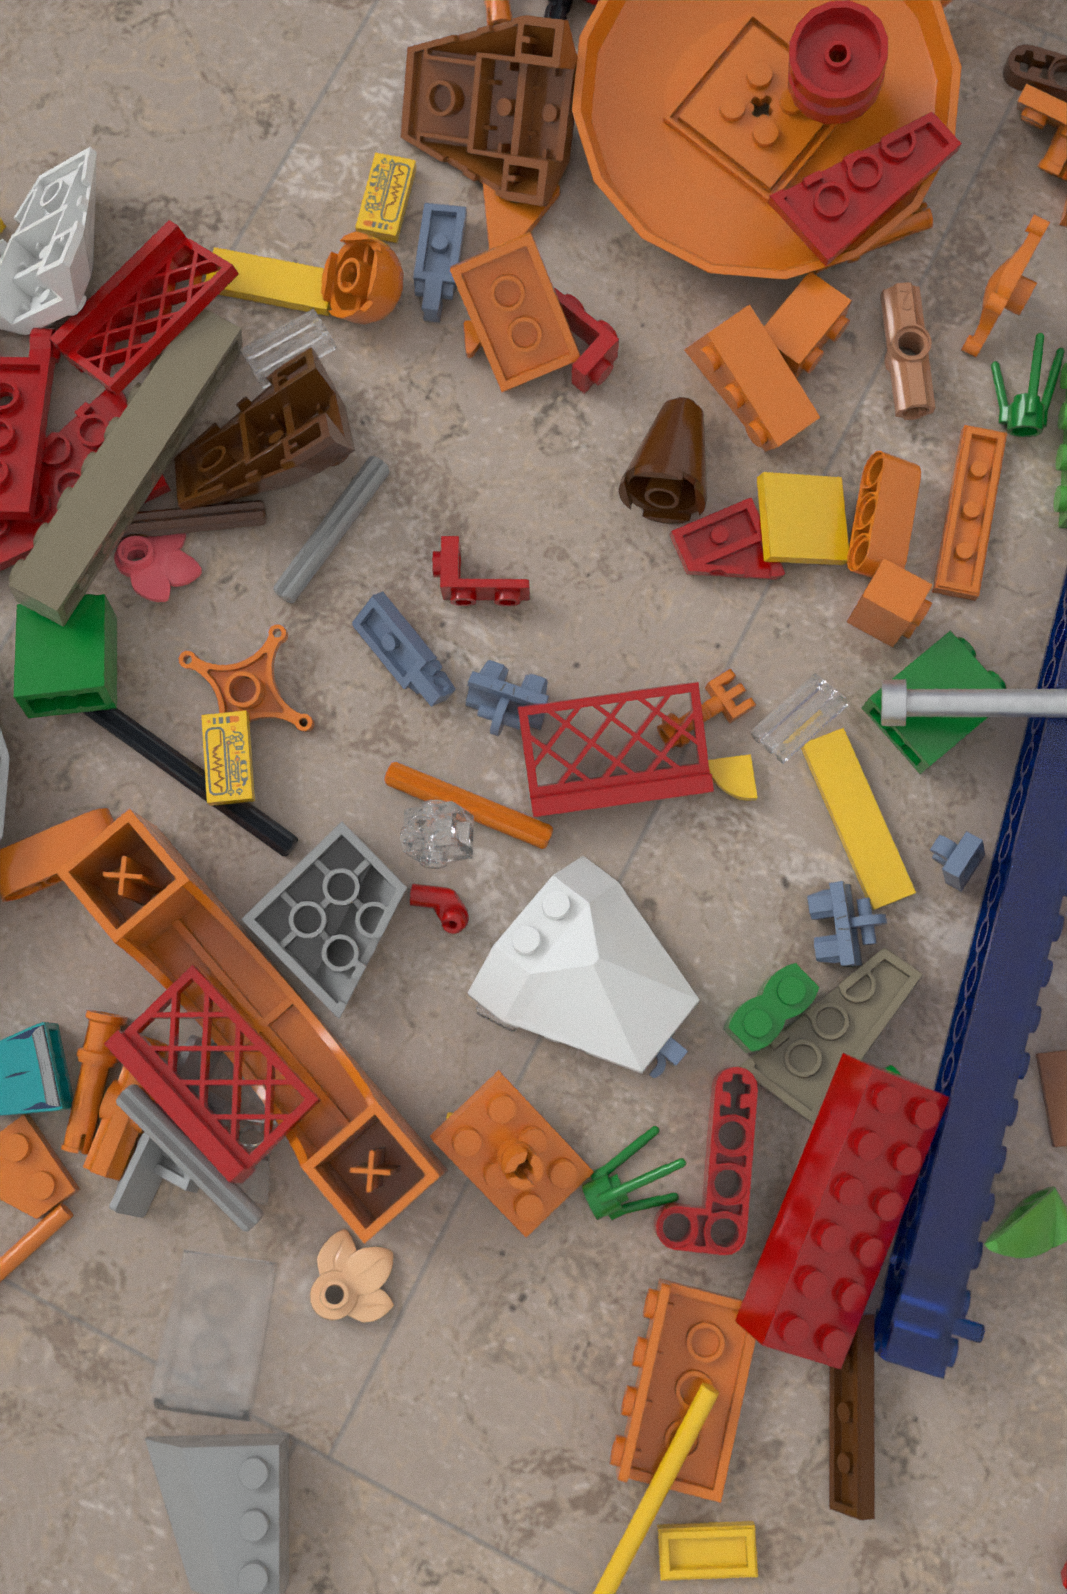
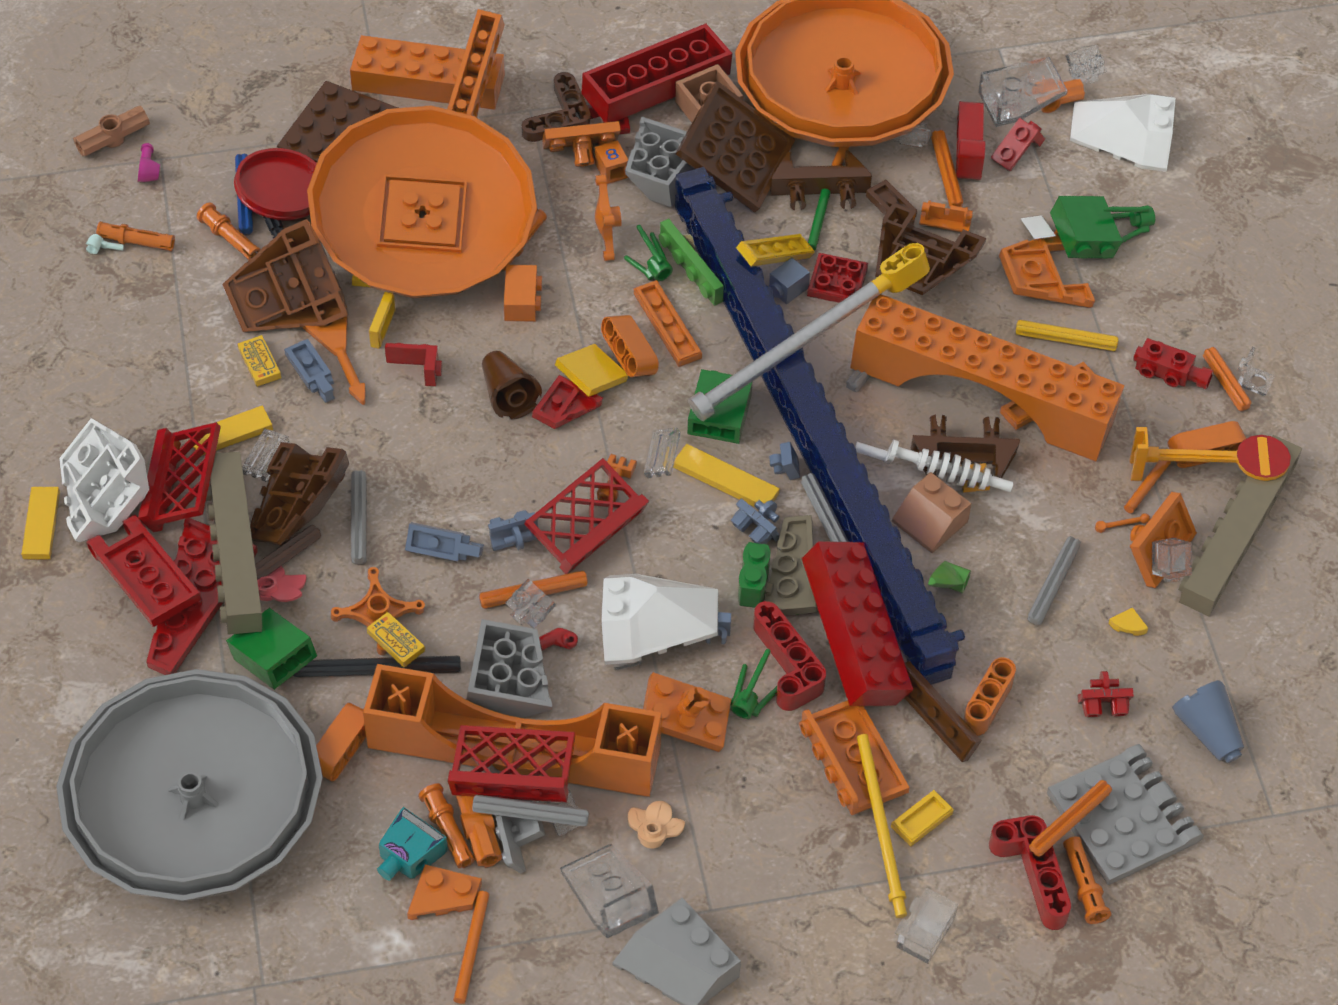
camera: 45 degrees left, 25 degrees down
(362, 279) = (283, 396): orange cylinder -> none
(466, 592) = (451, 499): red bracket -> none
(515, 311) = (377, 362): orange plate -> none
(584, 244) = (382, 320): none -> yellow tile
(735, 776) = (655, 495): yellow tile -> none
(753, 379) = (516, 326): orange wedge -> none
(837, 62) = (452, 166): red wheel -> none
(847, 199) = (505, 211): red wing -> none
(891, 604) = (664, 375): orange brick -> none
(906, 328) = (580, 273): nougat piece -> none
(947, 987) = (823, 508): none -> light grey axle
(969, 1452) = (991, 685): none -> orange beam

